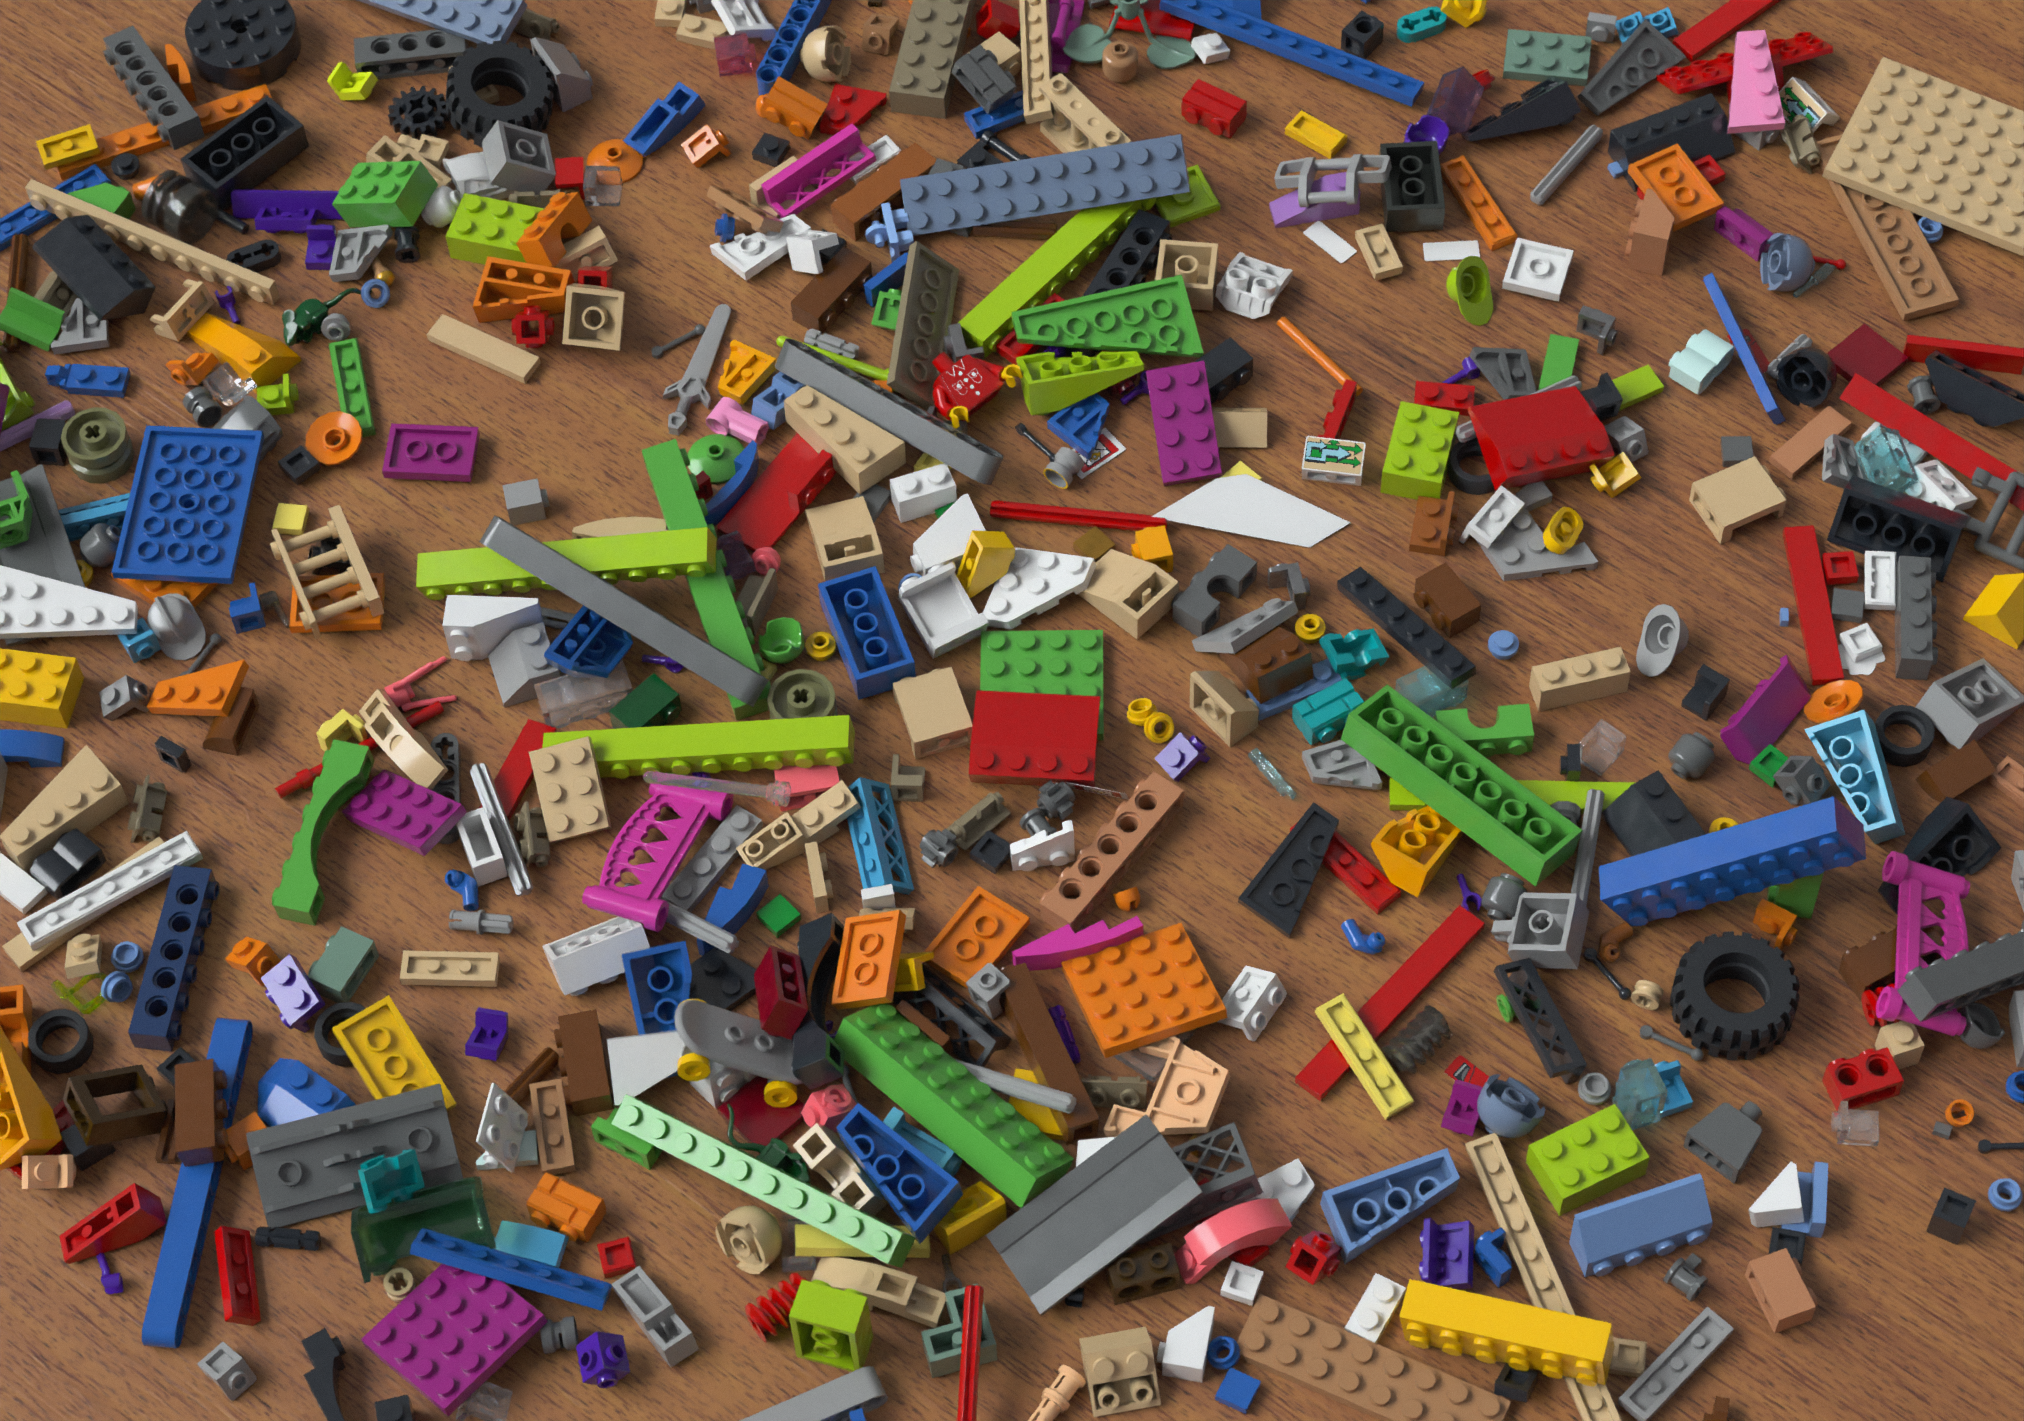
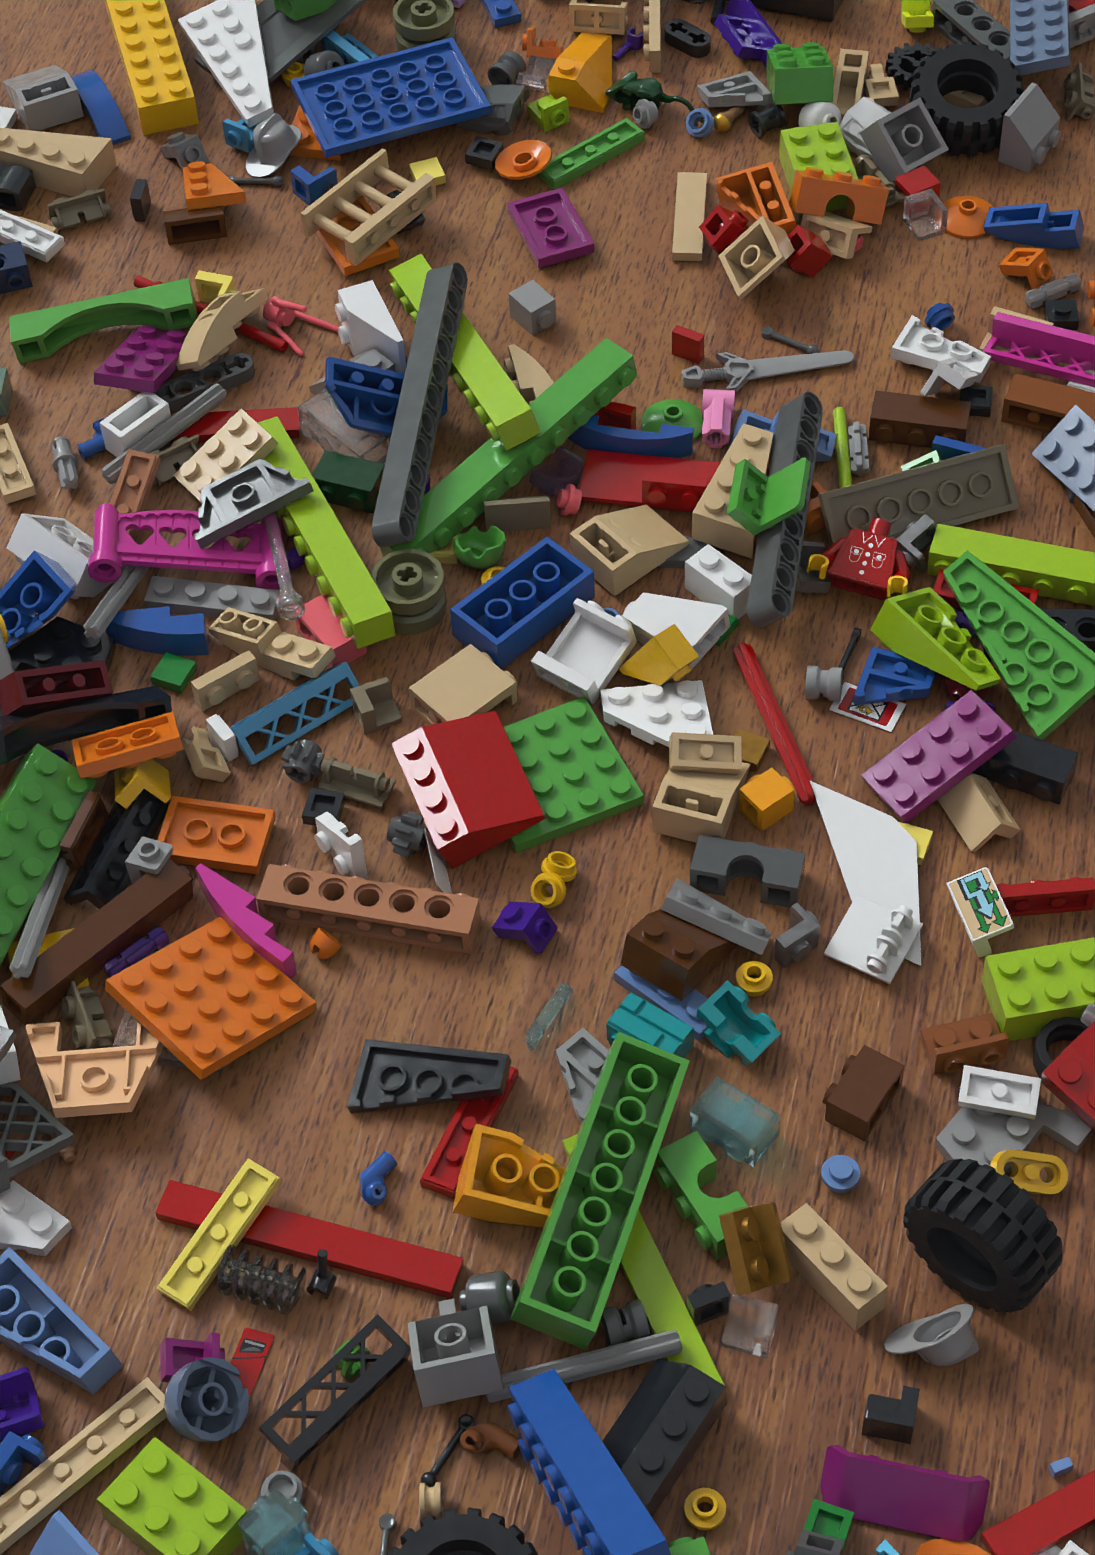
camera: 65 degrees right, 5 degrees down
(320, 246) = (734, 65): dark purple bracket -> none
(558, 878) = (135, 483): none -> nougat tile
(640, 784) = (245, 498): none -> dark grey wing
(643, 409) = (688, 344): none -> red tile
(742, 143) = (1053, 290): none -> light grey axle
(744, 210) = (965, 317): medium nougat plate -> none
(744, 372) = (768, 398): light orange wing -> none
(880, 233) = (1023, 432): light blue hips -> none
(889, 407) = (764, 501): none -> bright green bracket
(1035, 821) = (372, 833): dark grey bush -> none
(1102, 566) = (705, 753): none -> tan plate
(1222, 706) = (598, 929): tan slope -> none
(1253, 1001) = (244, 1104): white bracket -> none
(1315, 538) = (874, 938): none -> white hinge
(1406, 628) = (794, 1063): black plate -> none
(1432, 999) = (322, 1278): none -> black hand
(1467, 894) = (484, 1263): dark purple hand -> none
(1554, 708) = (756, 1247): none -> pearl gold bracket
(1619, 568) = (983, 1235): none -> black tyre
(1691, 756) = (789, 1429): dark grey head -> none

